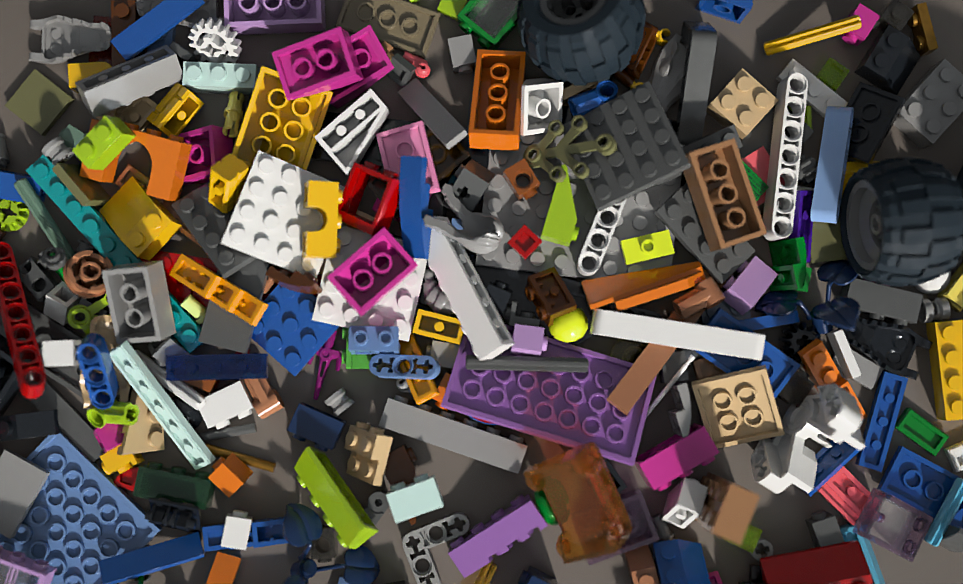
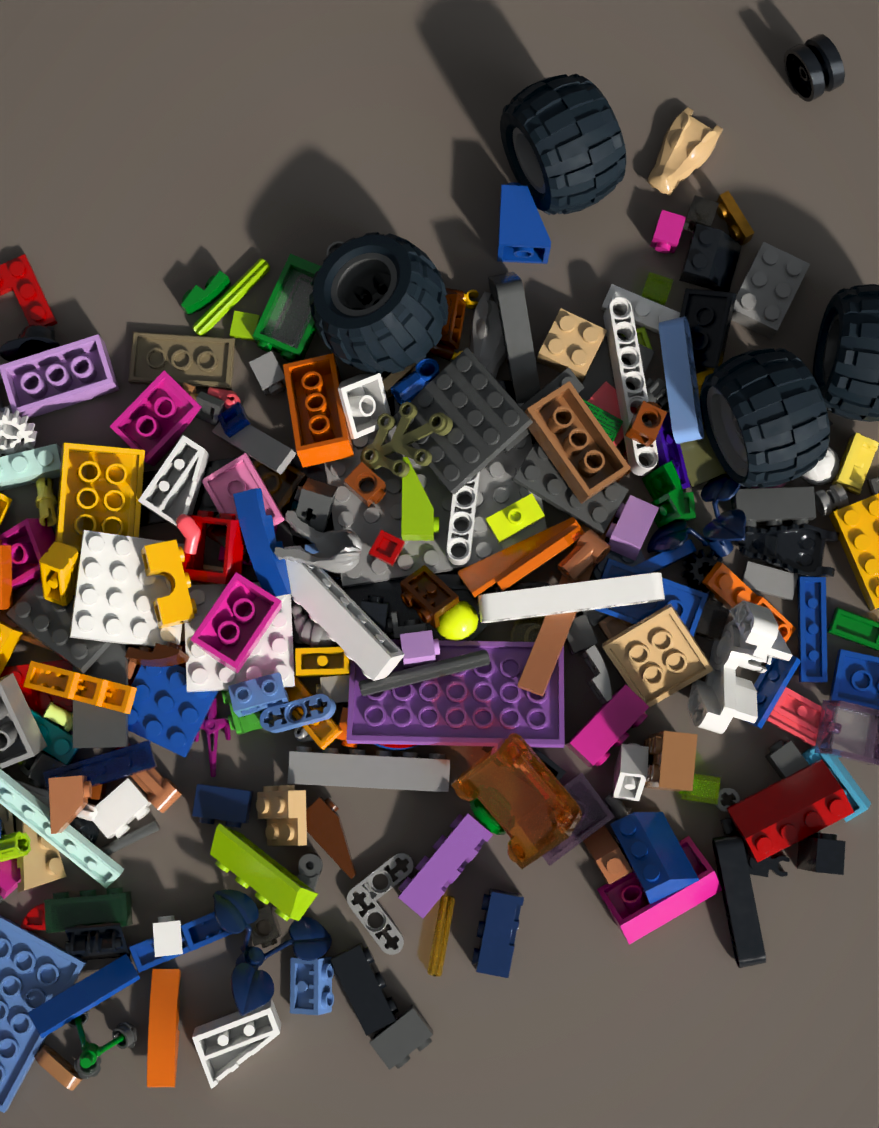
camera: 15 degrees left, 5 degrees down
(120, 463) = (22, 902): yellow brick -> none
(179, 387) = (67, 800): none -> nougat slope
(229, 474) = (143, 881): orange brick -> none
(246, 459) = (152, 862): pearl gold bar -> none
(317, 64) = (121, 425): dark pink slope -> none
(339, 402) = (239, 771): light grey wheel -> none
(353, 179) = (190, 531): none -> coral arm
(414, 498) = (346, 847): light aqua brick -> none
(420, 87) = (234, 419): none -> clear blue tile
(669, 385) = (579, 656): white piece -> none
(783, 201) = (638, 430): none -> dark orange brick
(812, 35) = (623, 255): yellow axle -> none
(844, 354) = (751, 570): white tile -> none

